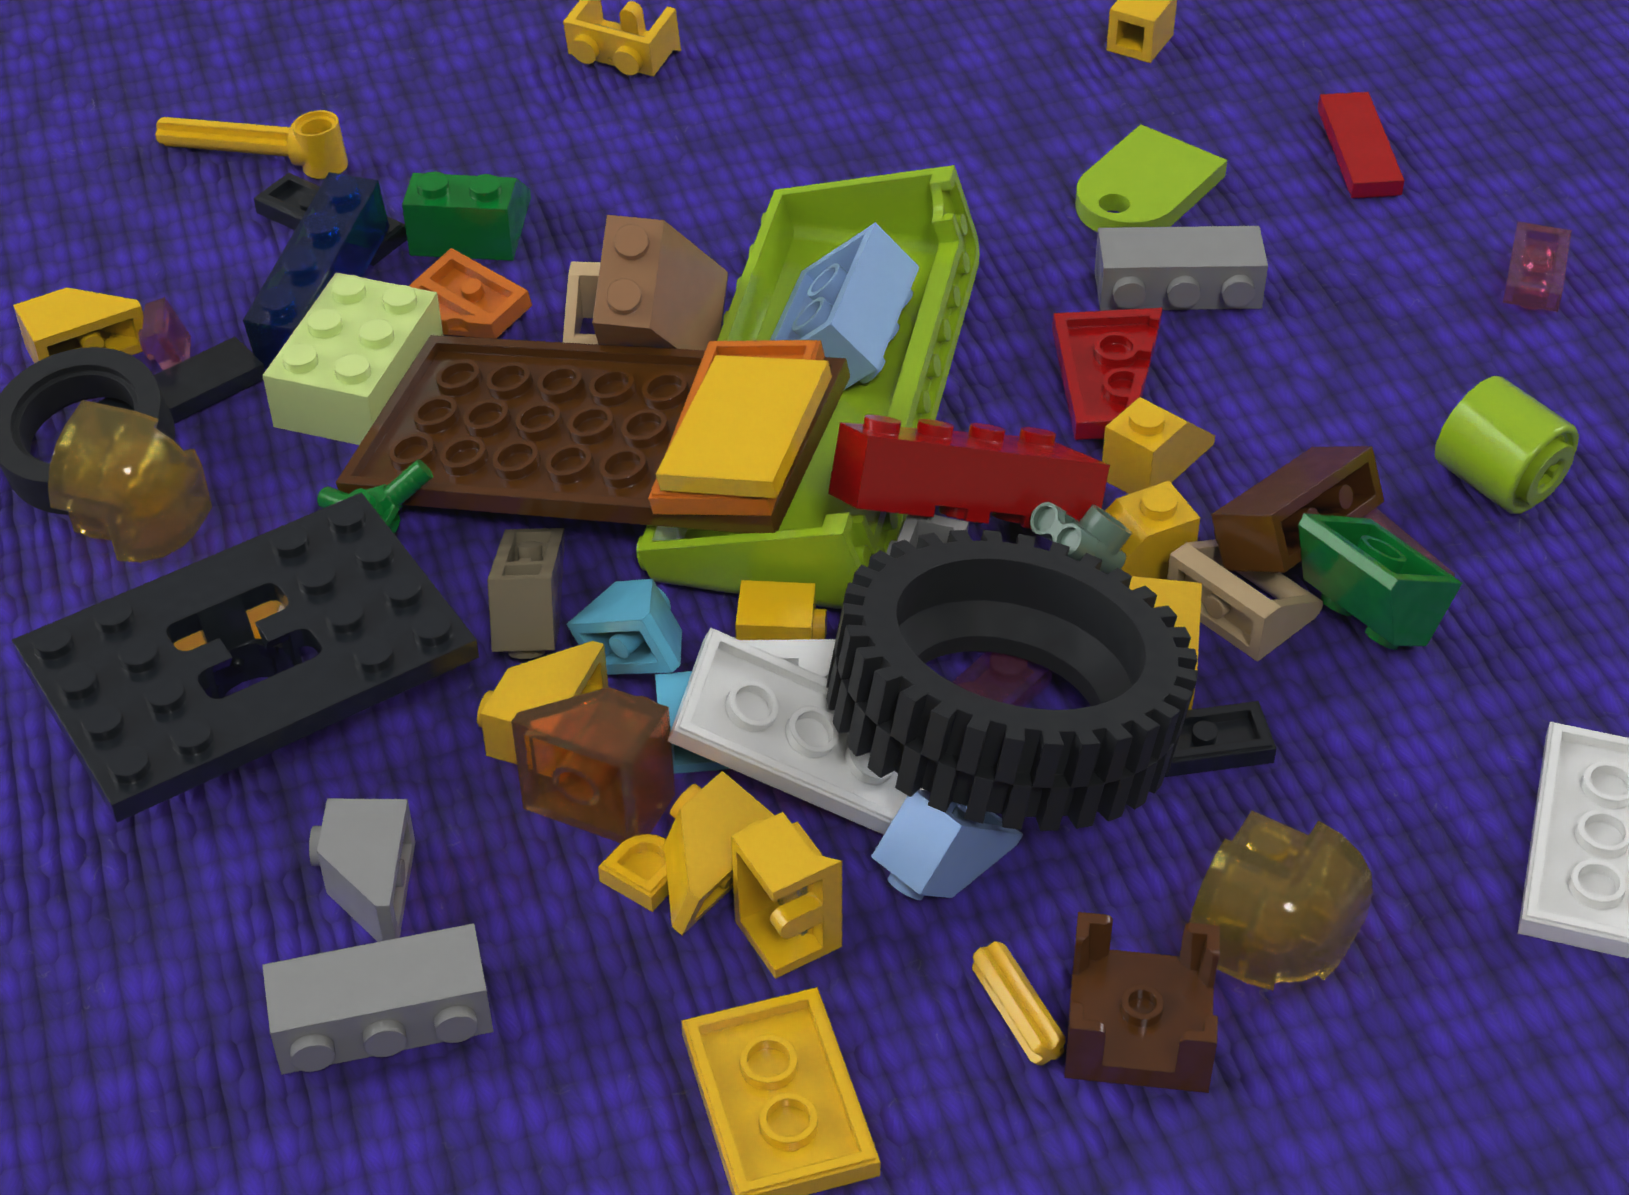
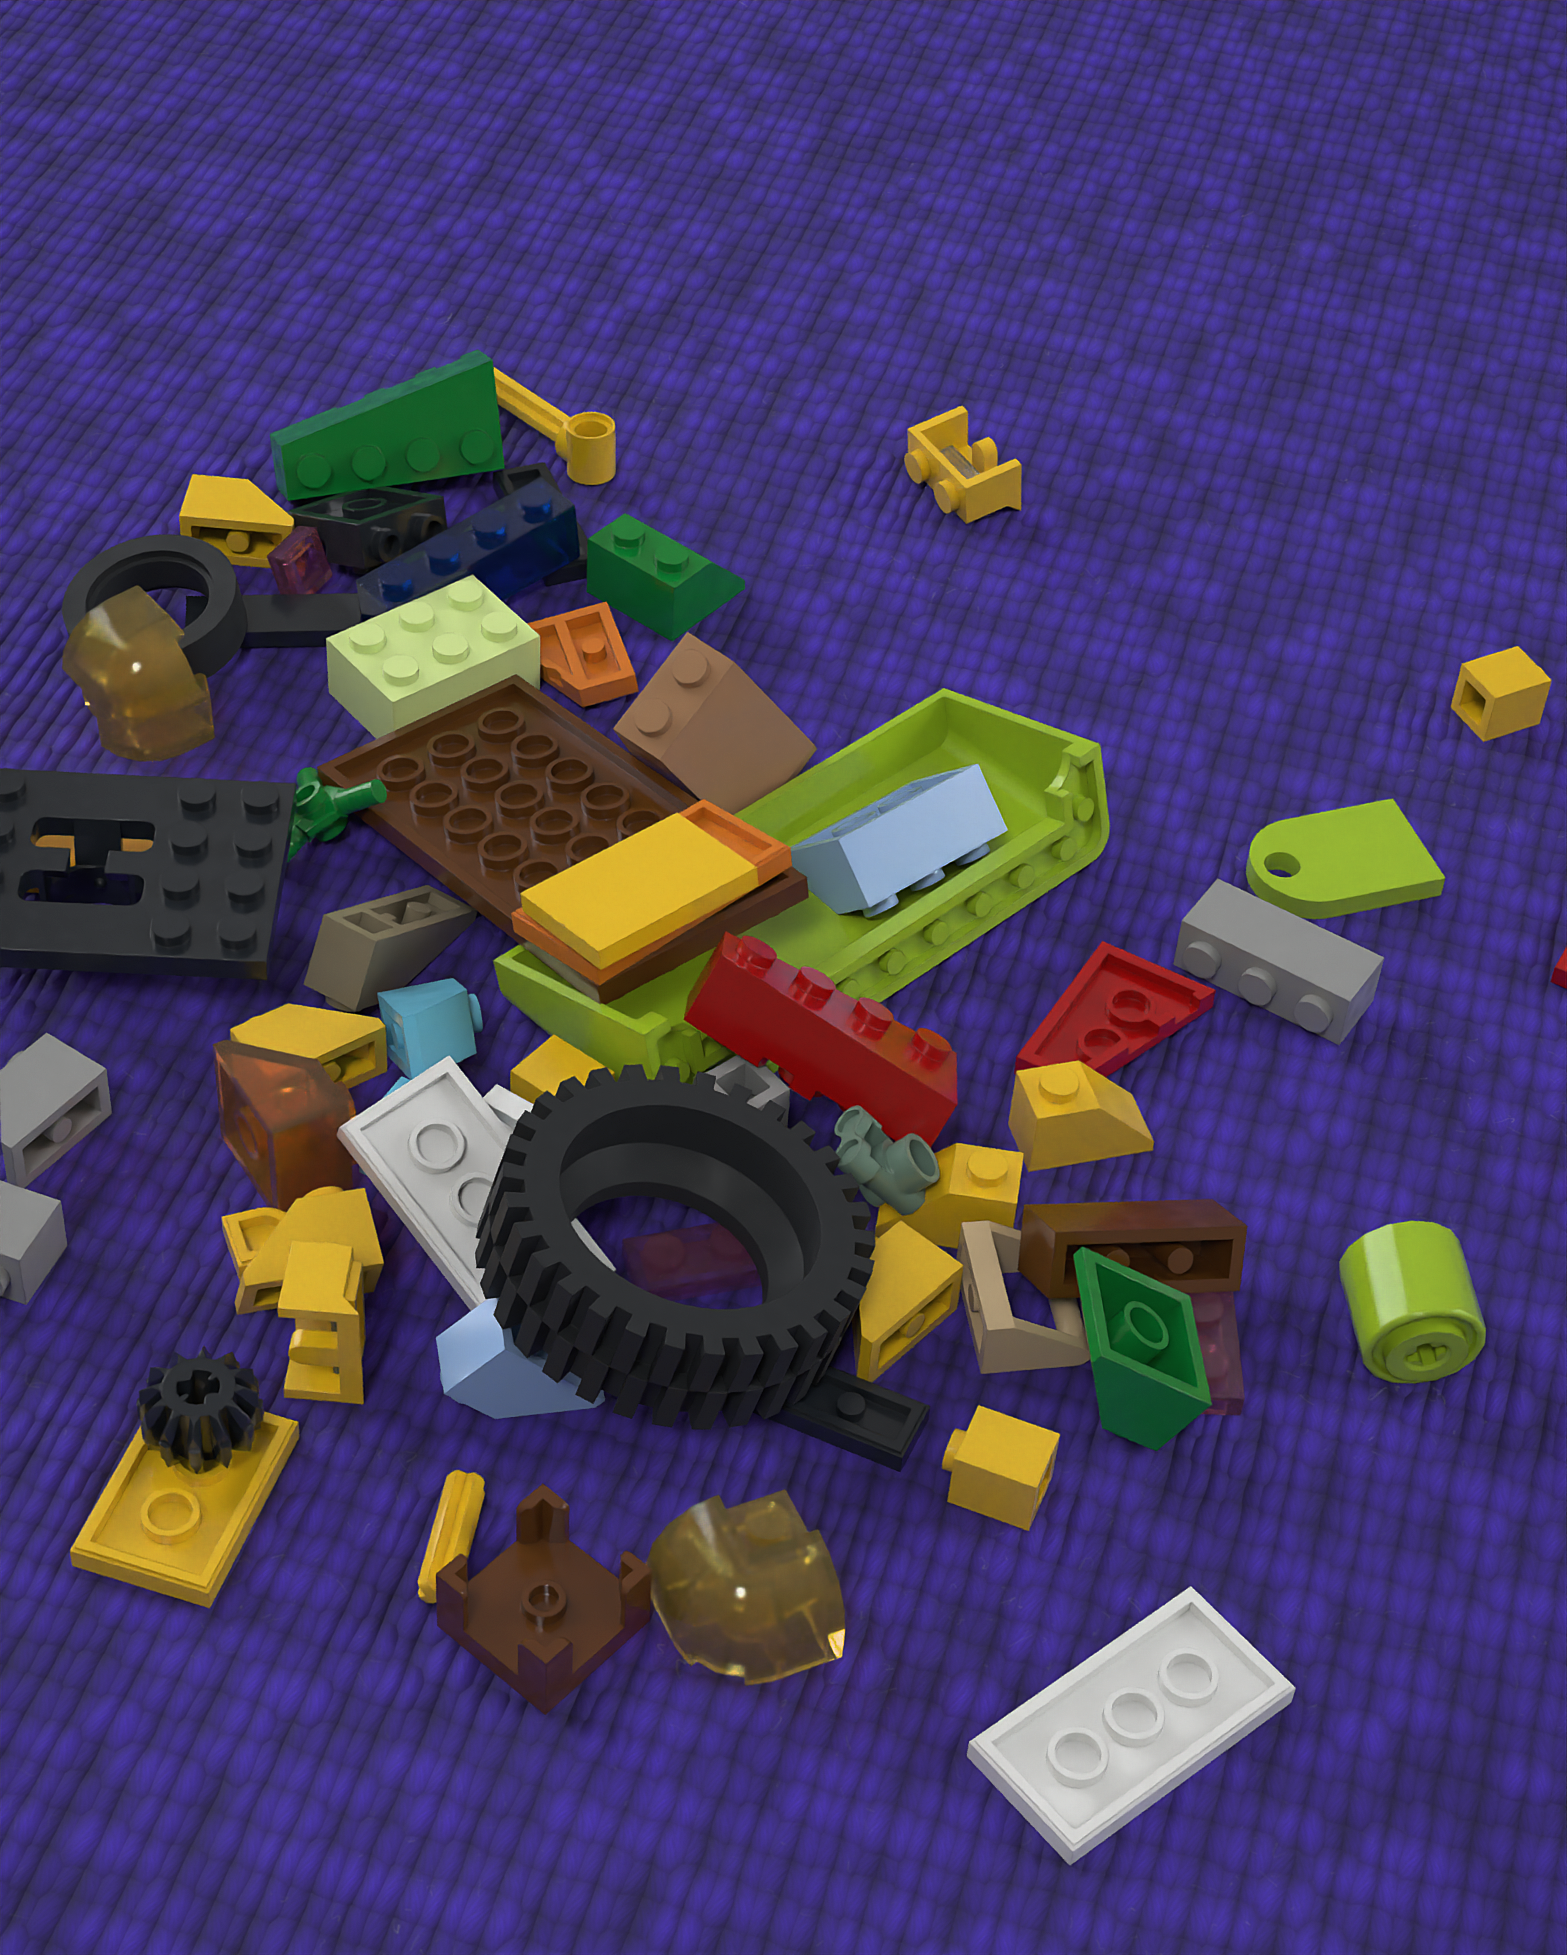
camera: 30 degrees right, 0 degrees up
(163, 197) = (398, 435): none -> green wedge
(204, 276) = (373, 524): none -> black plate
(751, 1019) = (200, 1409): none -> black gear
(1354, 713) = (1000, 1466): none -> yellow brick

